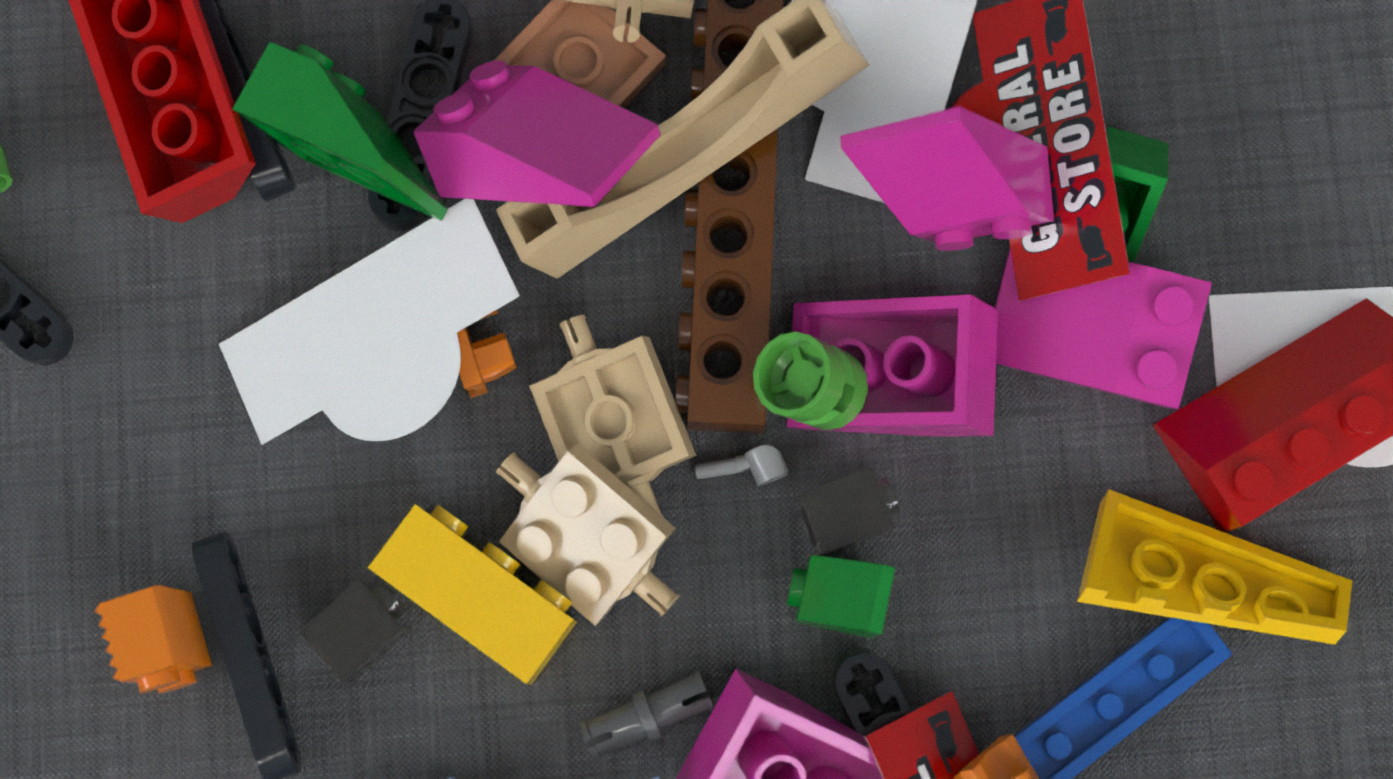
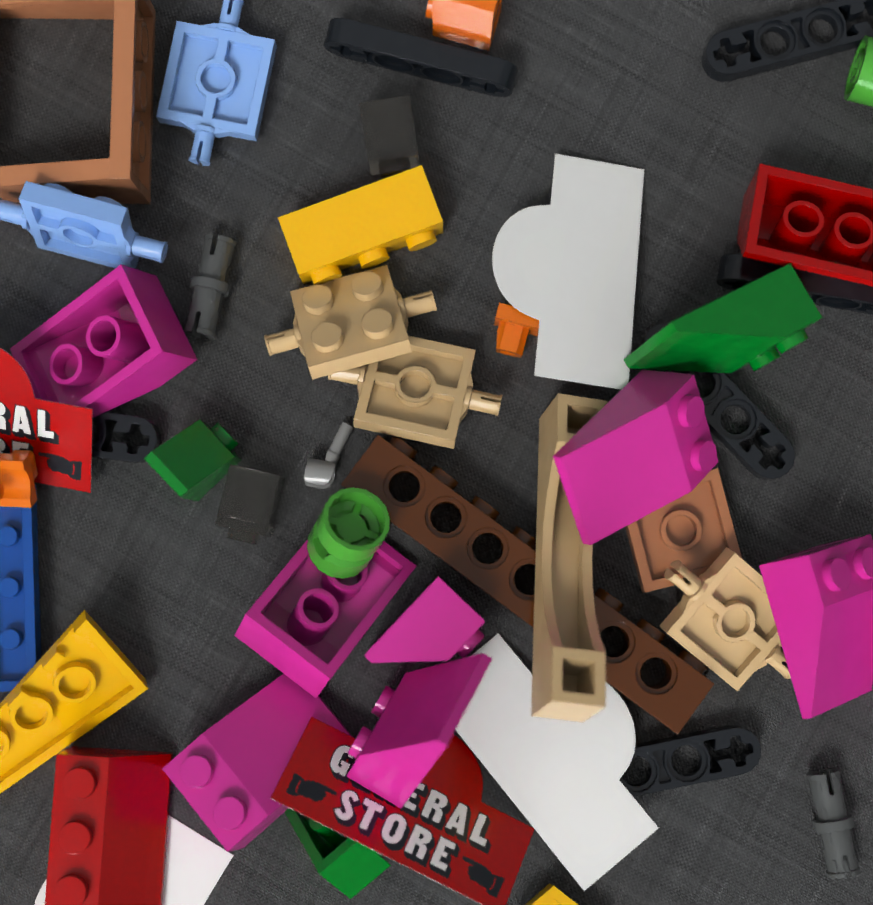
camera: 125 degrees right, 5 degrees up
(852, 238) = (430, 629): none -> dark pink slope

